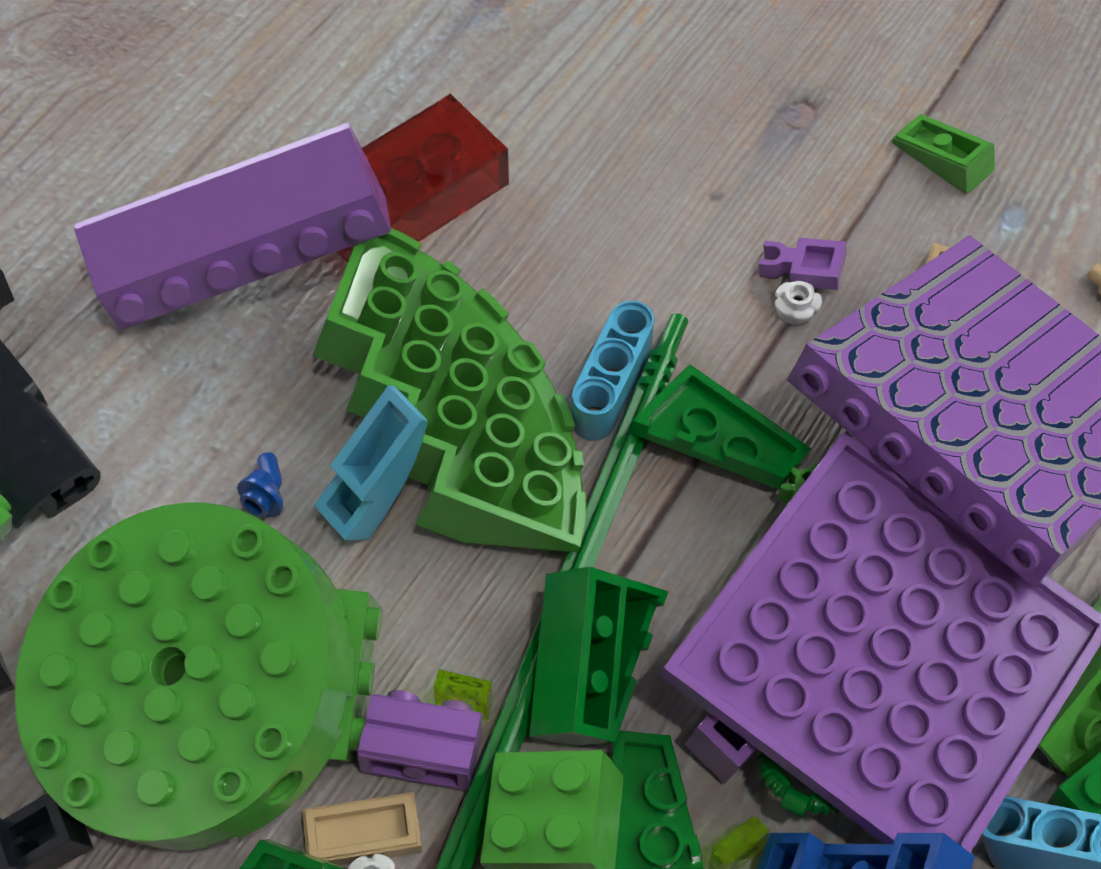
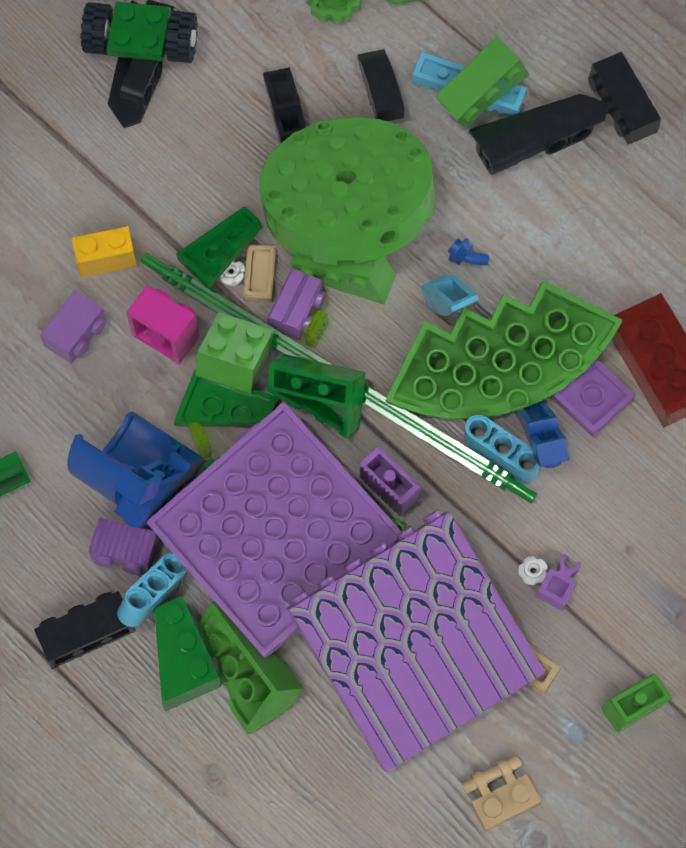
camera: 105 degrees right, 10 degrees up
(233, 227) = (622, 247): medium lavender slope -> none
(496, 259) = (594, 398): none -> medium lavender plate
(584, 298) = (543, 434): none -> blue slope
(719, 428) = (453, 489): green wing -> none
(724, 511) = (390, 481): none -> medium lavender brick

